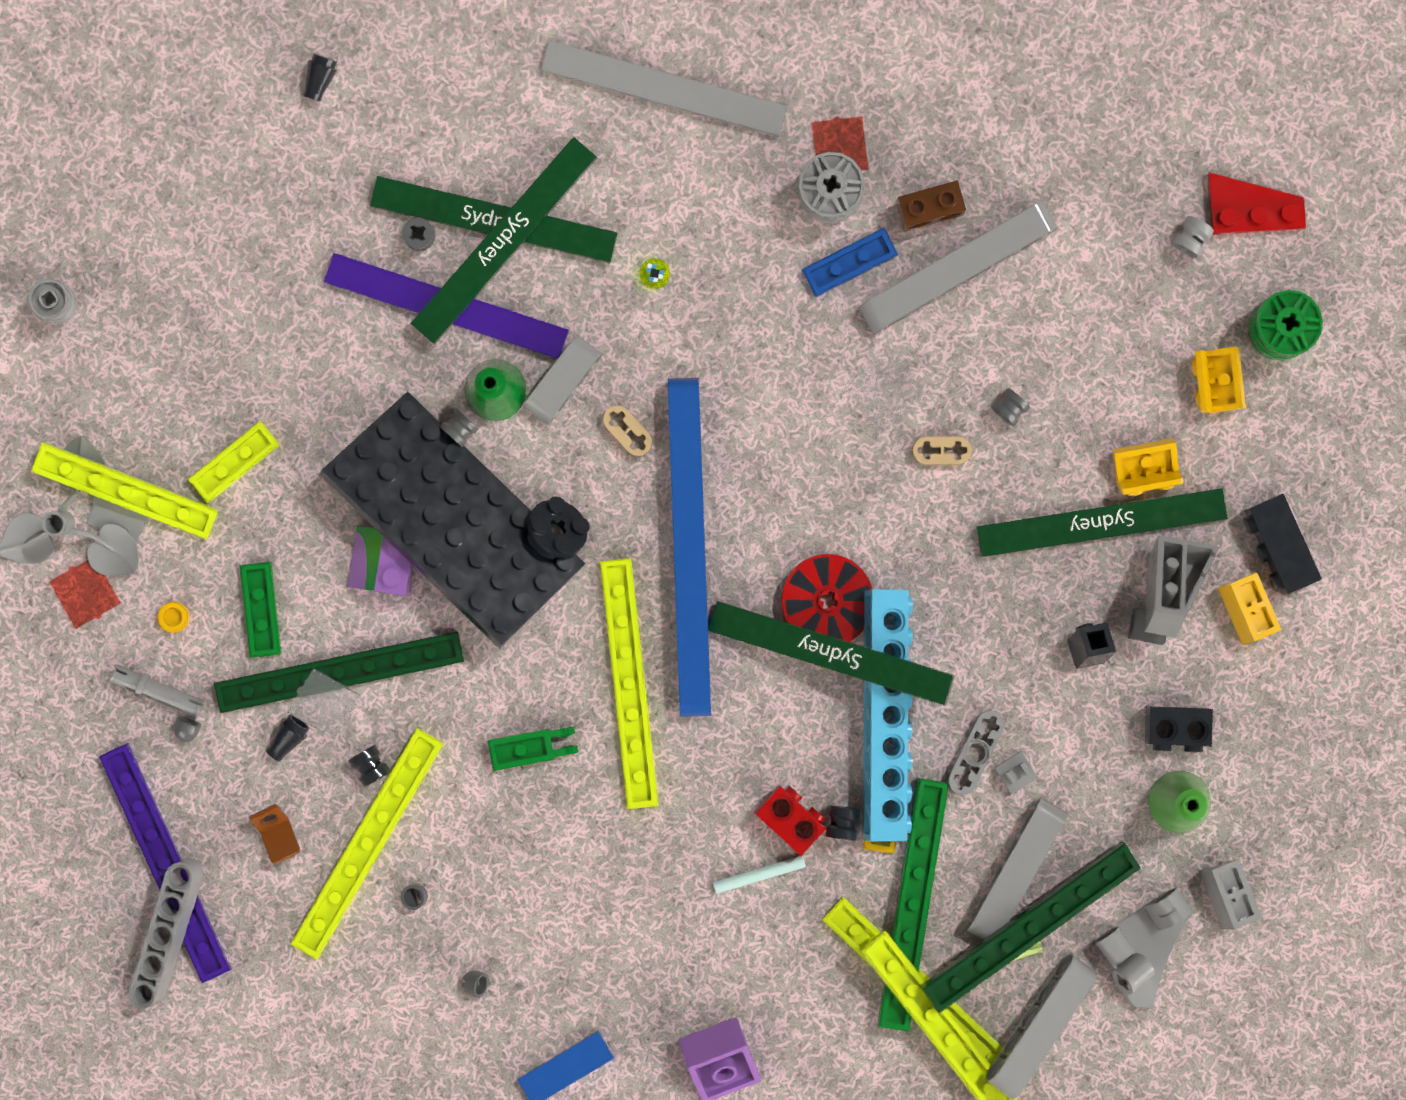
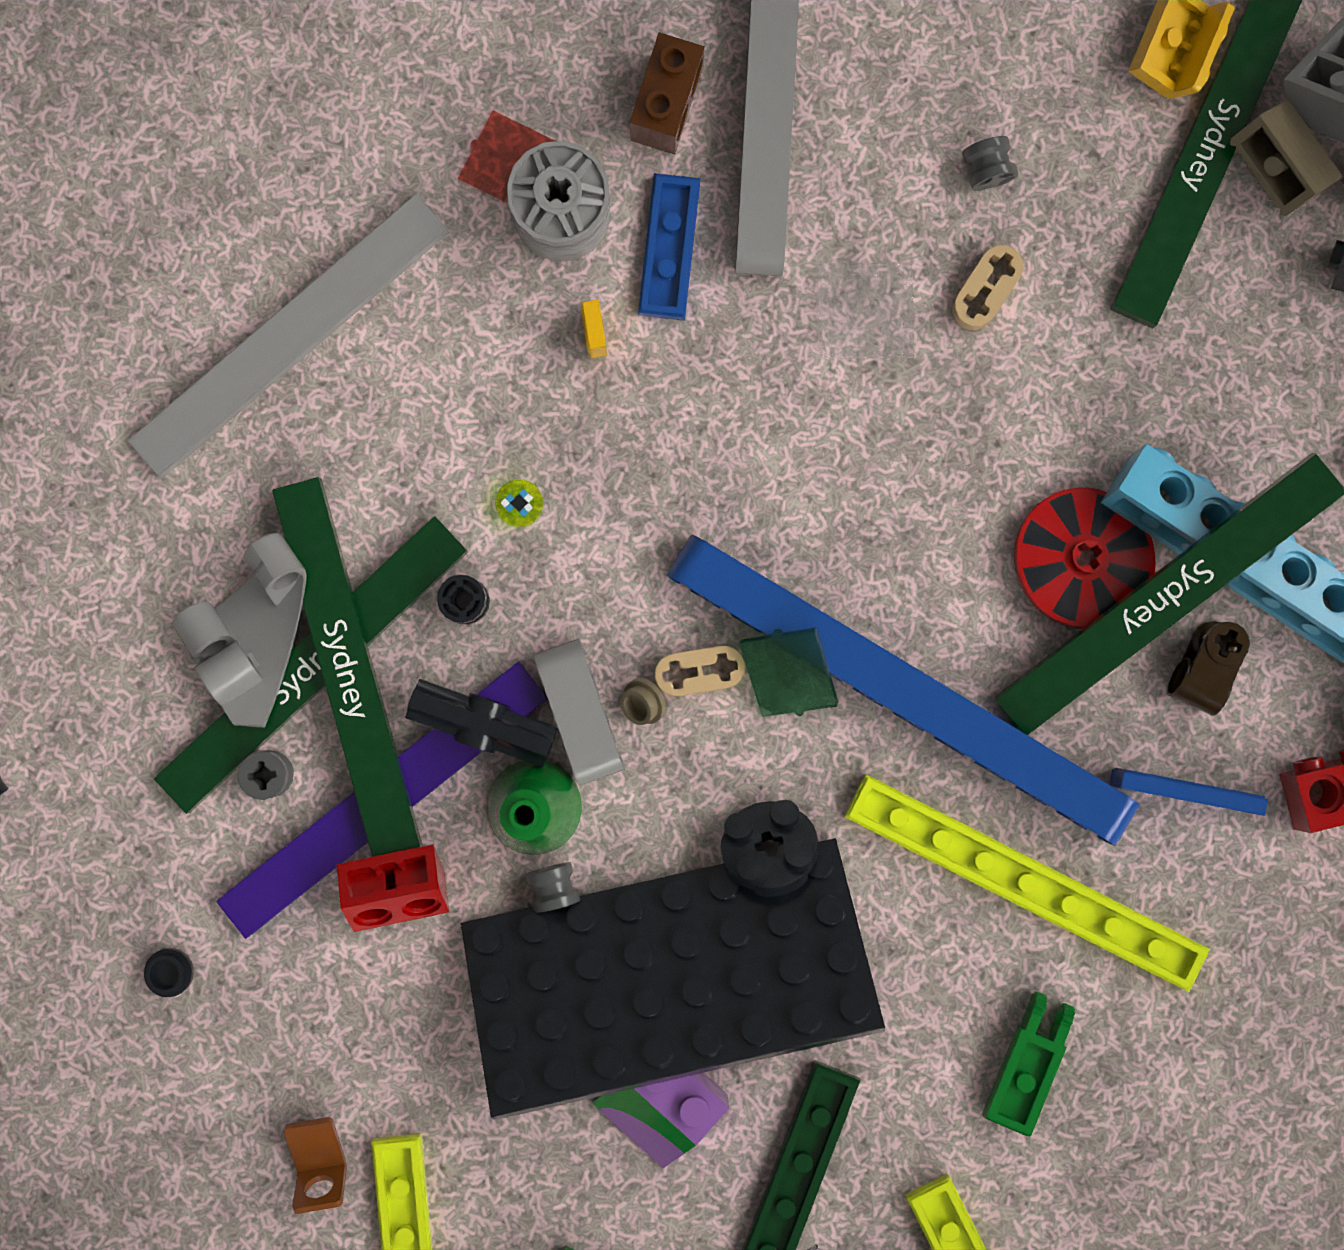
camera: 65 degrees left, 0 degrees up
(232, 397) = (316, 1158): none -> dark orange bracket
(278, 252) = (168, 972): none -> black plate
(403, 342) = (392, 888): none -> red brick
(488, 175) = (249, 635): none -> light grey panel
(522, 331) = (481, 722): none -> black piece
(586, 281) = (471, 600): none -> black wheel
(590, 411) = (643, 702): none -> dark tan plate
(657, 478) = (789, 672): none -> clear green piece
(735, 736) = (1188, 791): none -> blue tile
(775, 251) = (593, 329): none -> yellow tile
(804, 705) = (1206, 673): none -> dark brown piece
(1118, 566) = (1285, 157): none -> dark tan brick

